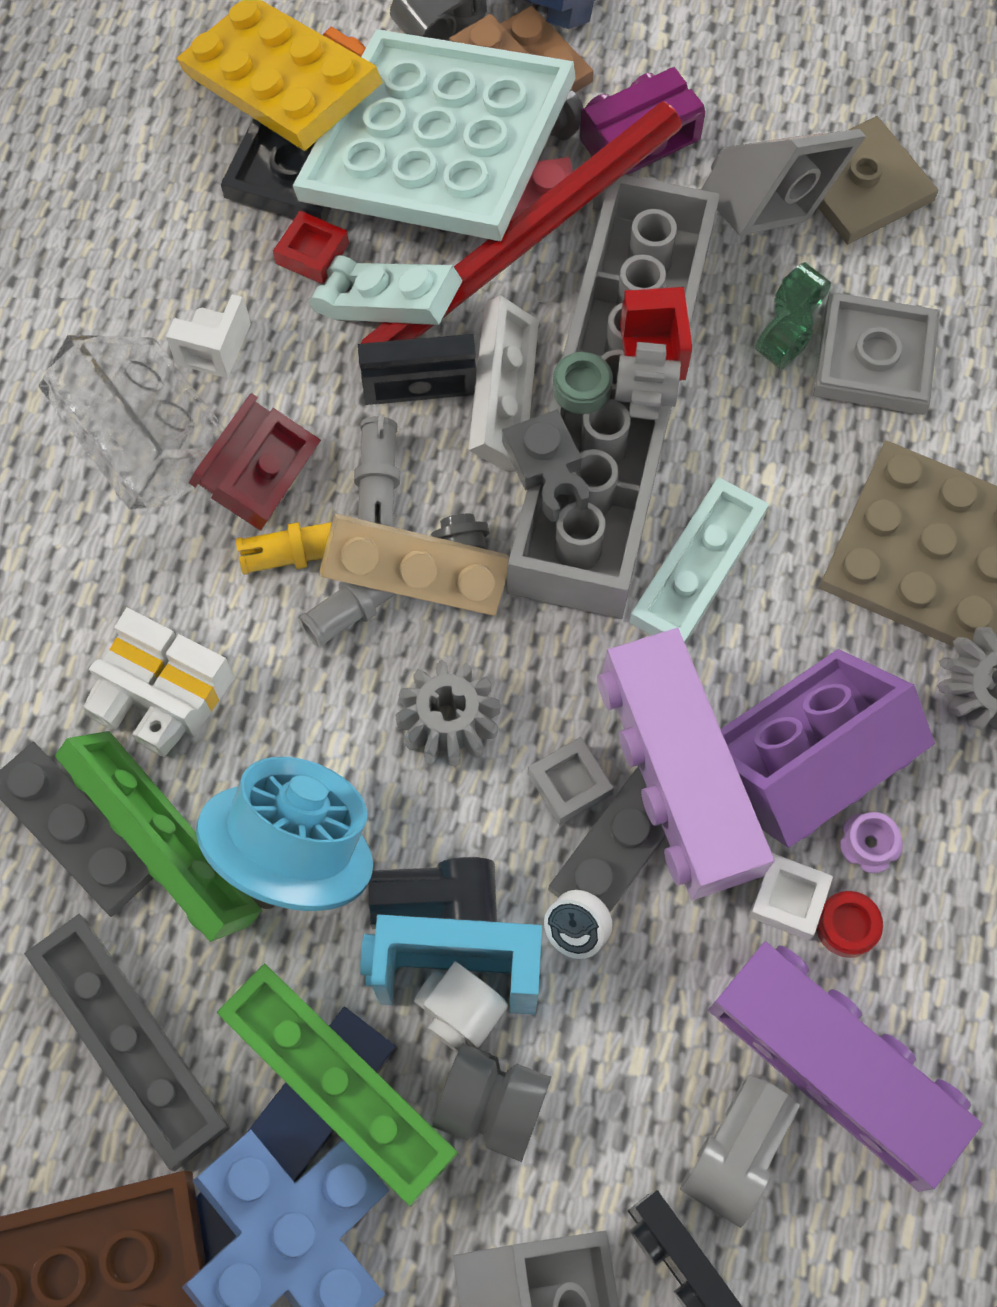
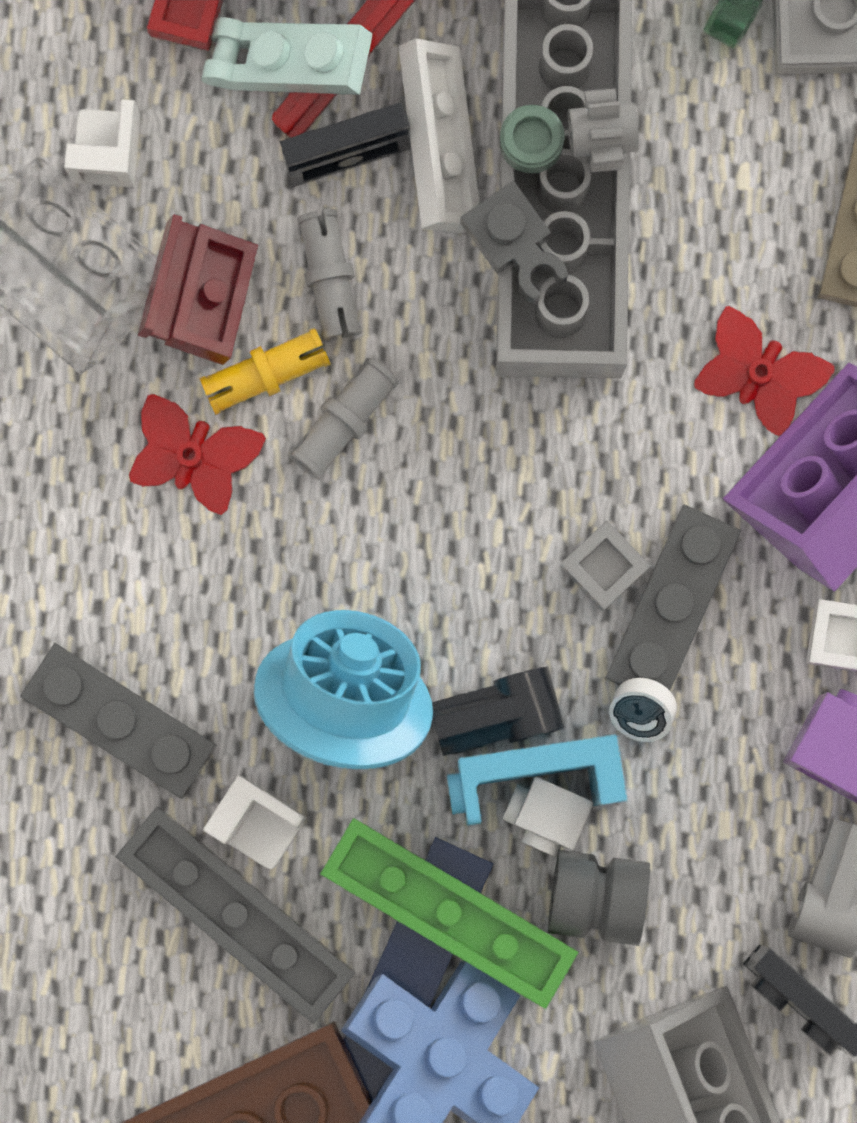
camera: 10 degrees left, 15 degrees up
(156, 833) = (203, 708): bright green plate -> none
(161, 675) = (135, 550): white hips -> none
(169, 951) = (254, 822): none -> white panel
(212, 608) = (191, 458): none -> red piece
(414, 565) = (398, 375): tan plate -> none
(426, 723) = (457, 542): light grey gear -> none
(463, 529) = (434, 325): dark grey plate -> none
(657, 318) = (600, 59): red panel -> none
(684, 765) = (716, 531): lavender brick -> none
(700, 561) = (690, 301): light aqua plate -> none
(752, 645) = (759, 376): none -> red piece

